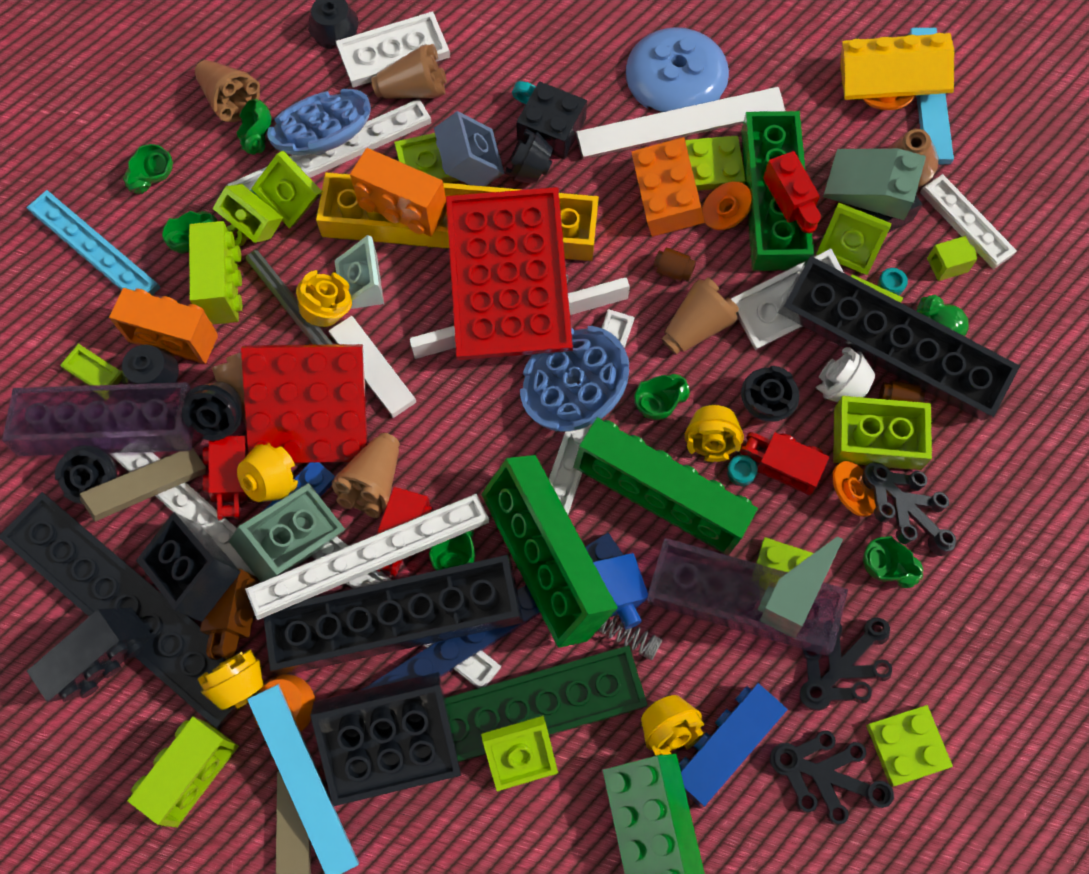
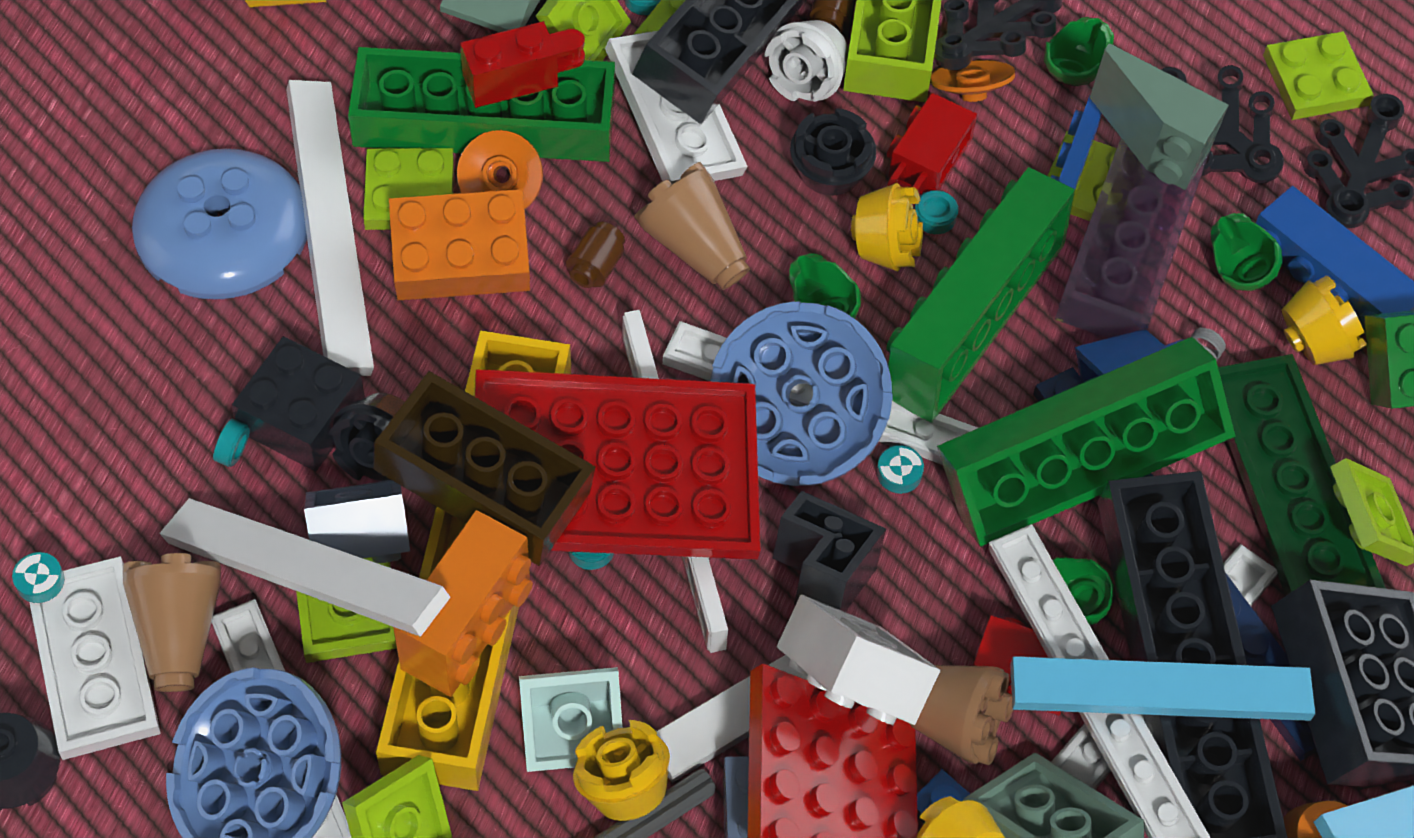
camera: 90 degrees left, 10 degrees down
(362, 590) = (1161, 688): none -> medium azure tile
(377, 407) = (857, 662): none -> white brick
(420, 118) = (307, 566): none -> white tile
(431, 14) = (38, 577): none -> teal tile
(464, 408) = (829, 548): none -> black brick
(478, 187) = (481, 460): none -> dark brown brick
(542, 448) = (900, 469): none -> teal tile
(728, 674) = (1244, 253): none -> green hair
(783, 551) = (1074, 155): none -> blue plate

